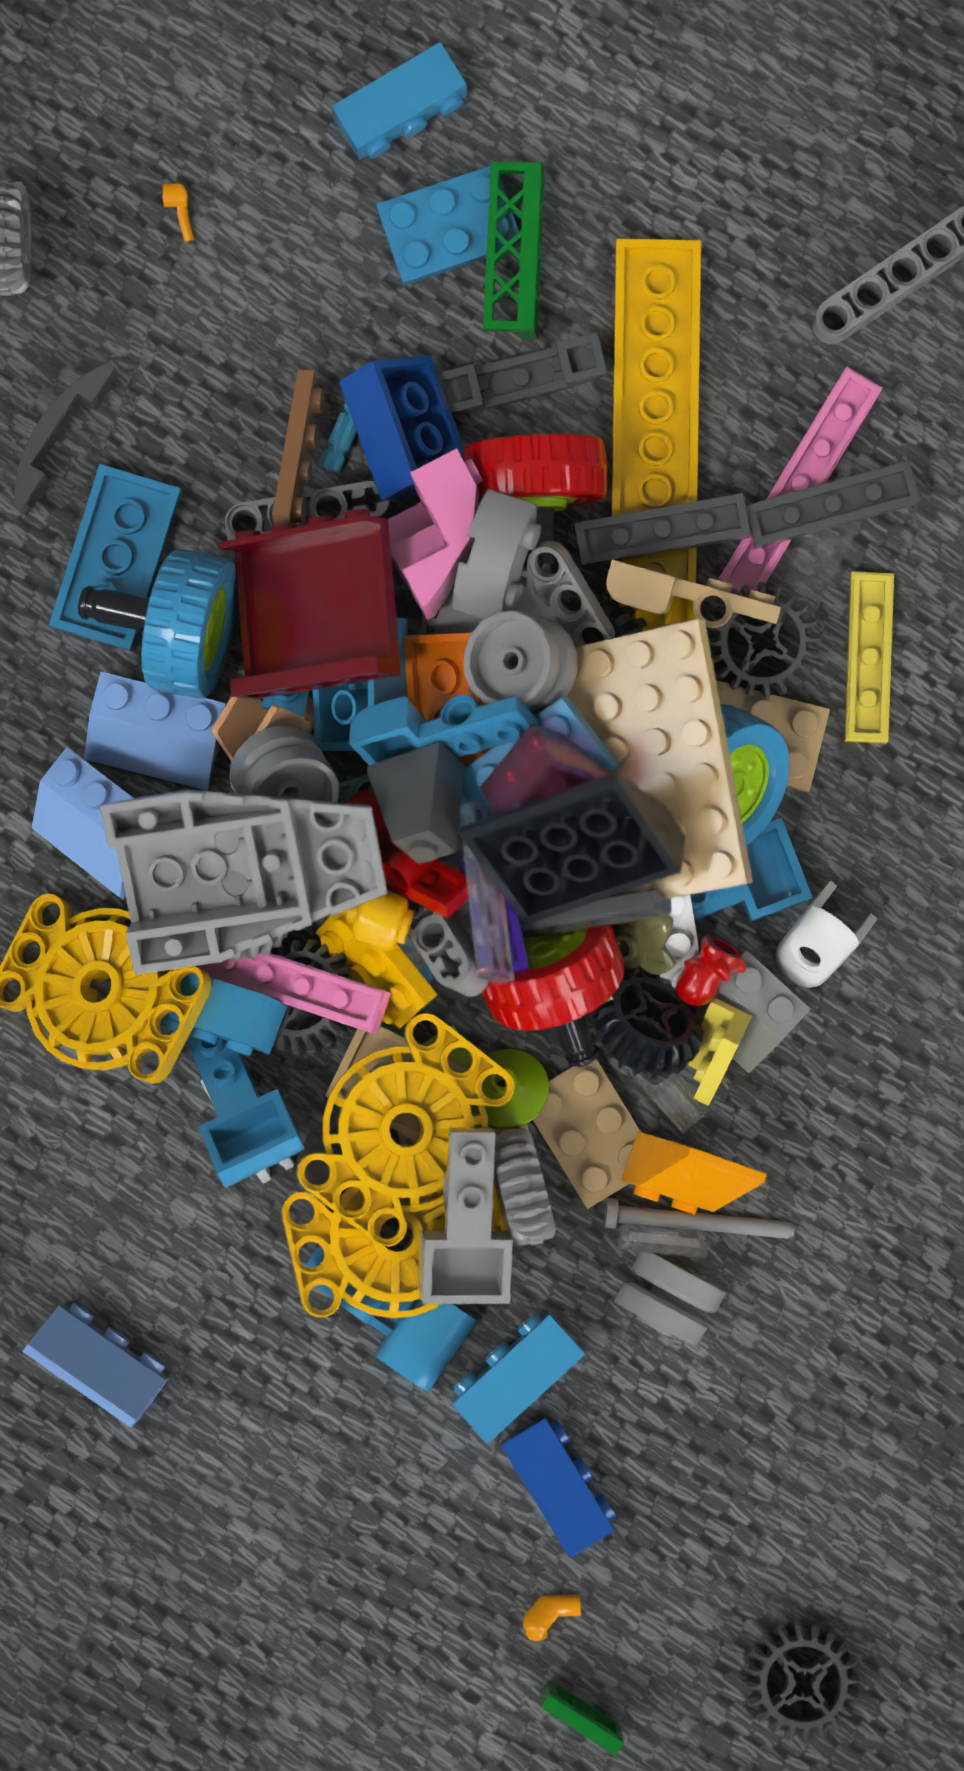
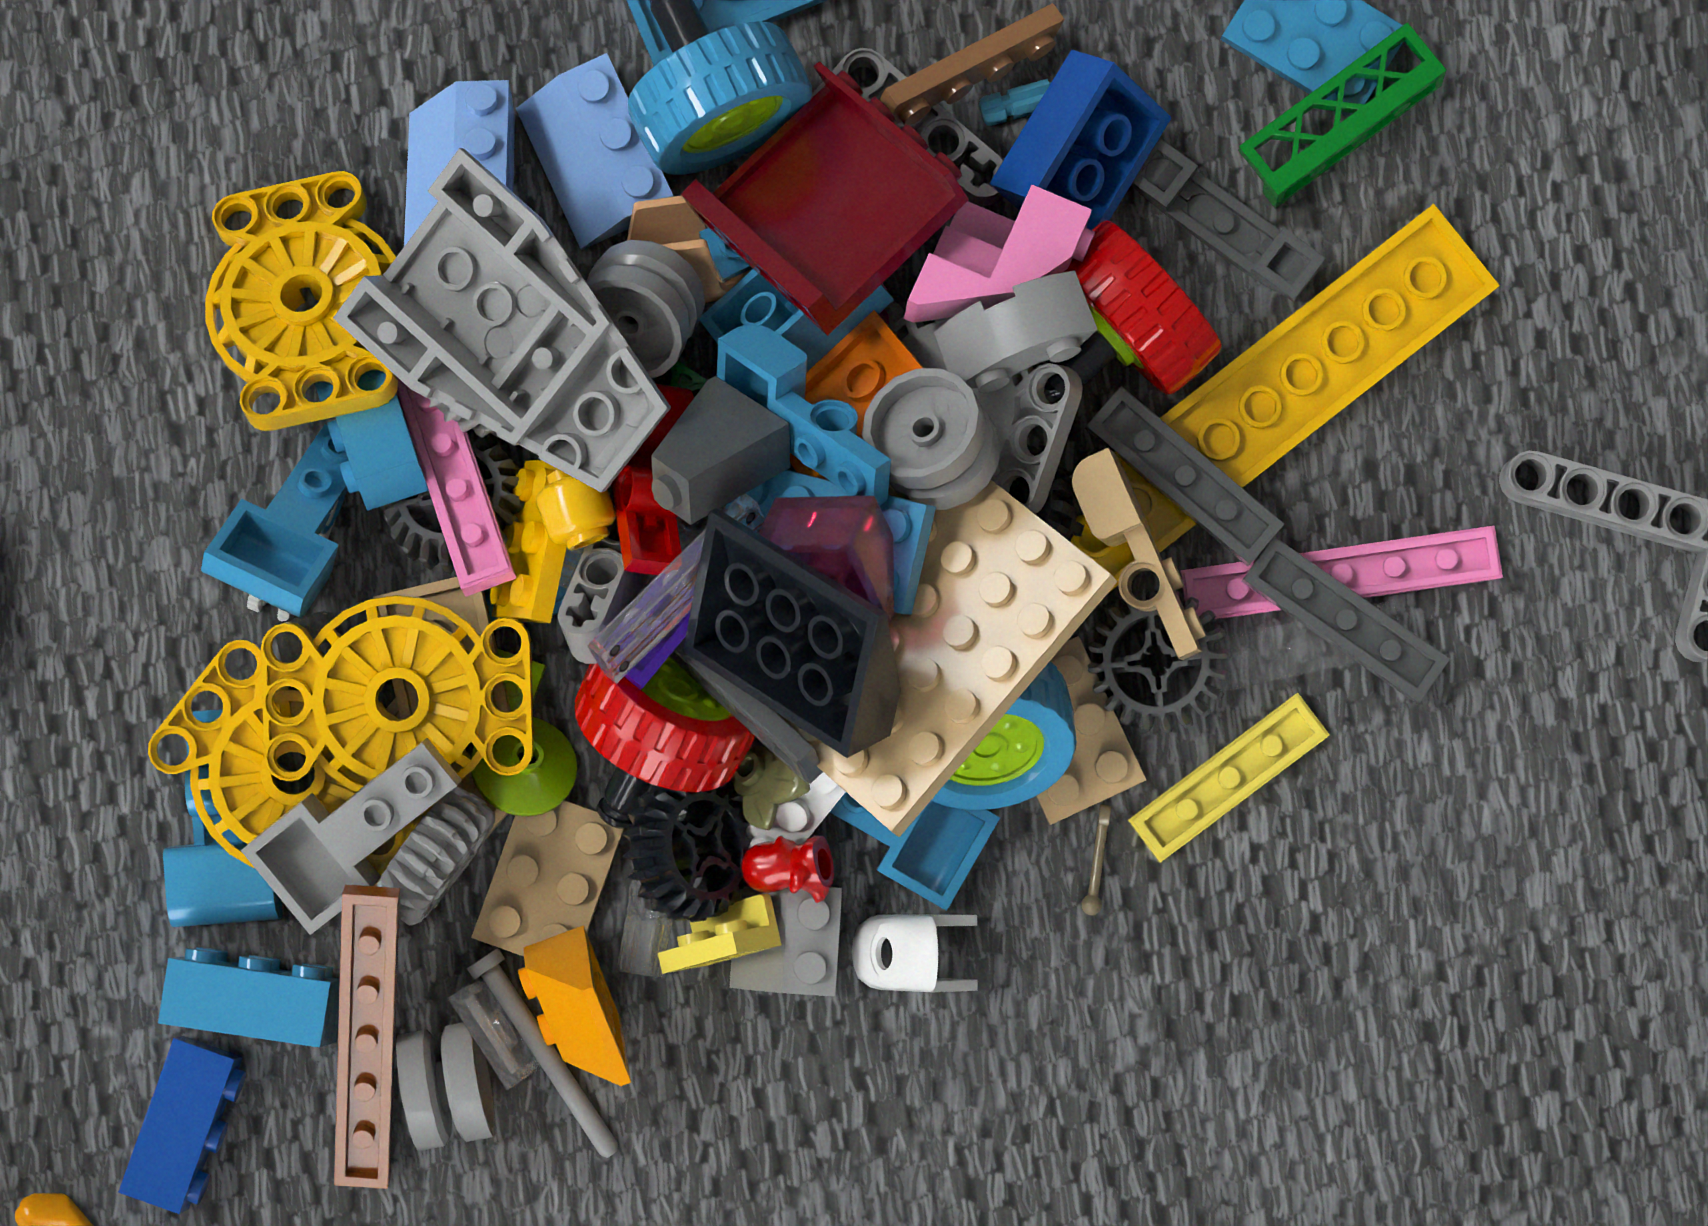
camera: 50 degrees right, 0 degrees up
(600, 1320) = (366, 1035): none -> plate
(879, 805) = (1092, 903): none -> dark tan hinge

